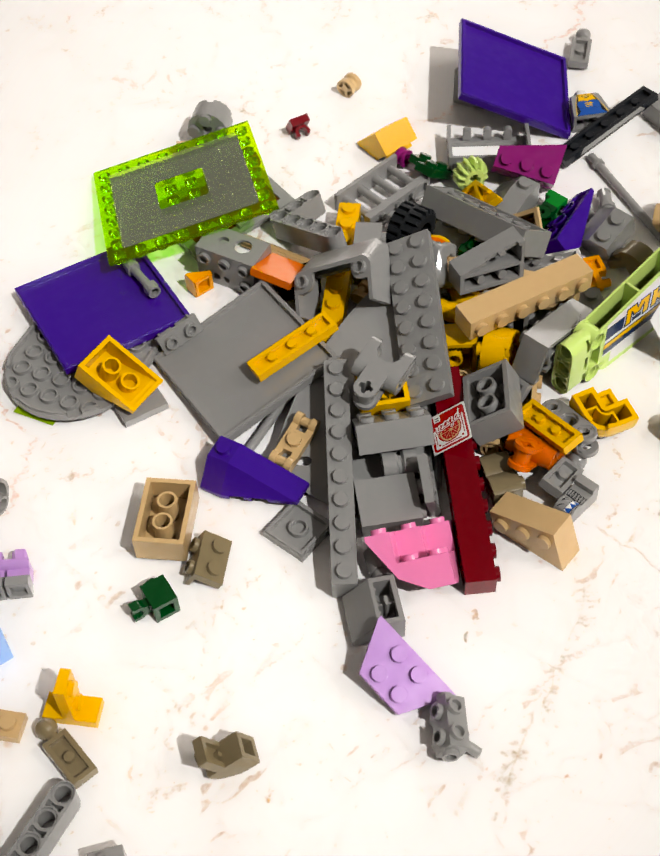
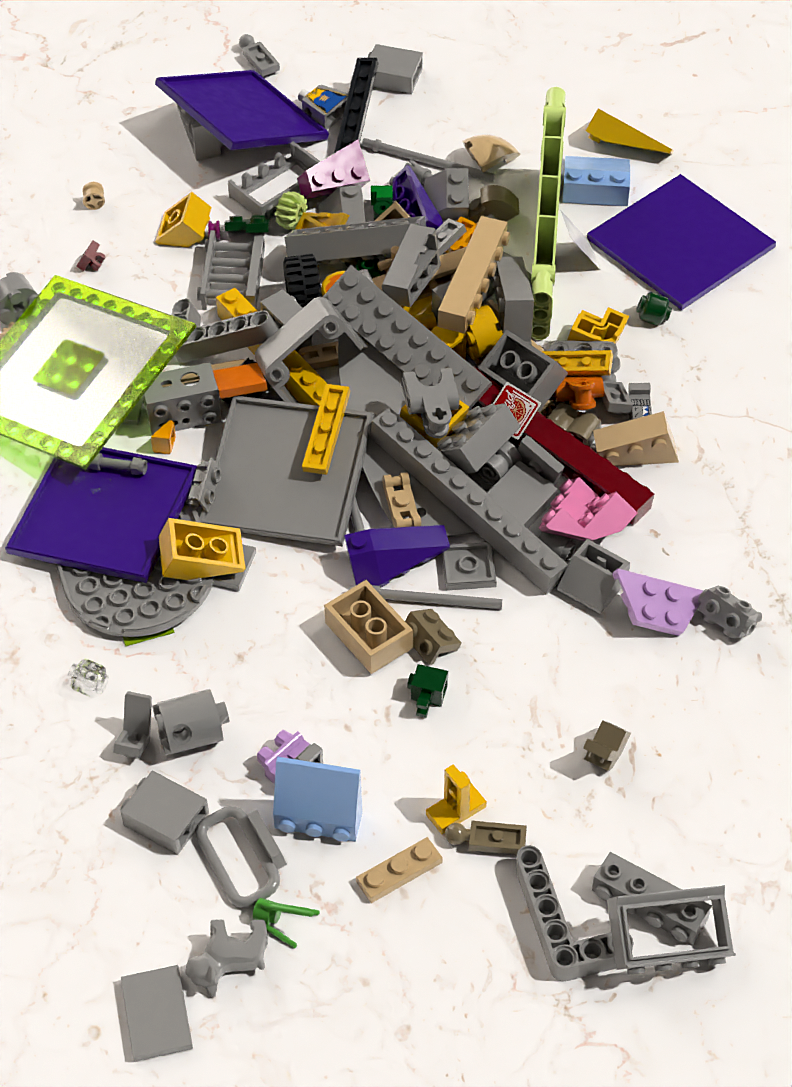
camera: 45 degrees left, 0 degrees up
(208, 499) = (438, 598): none -> light grey bar

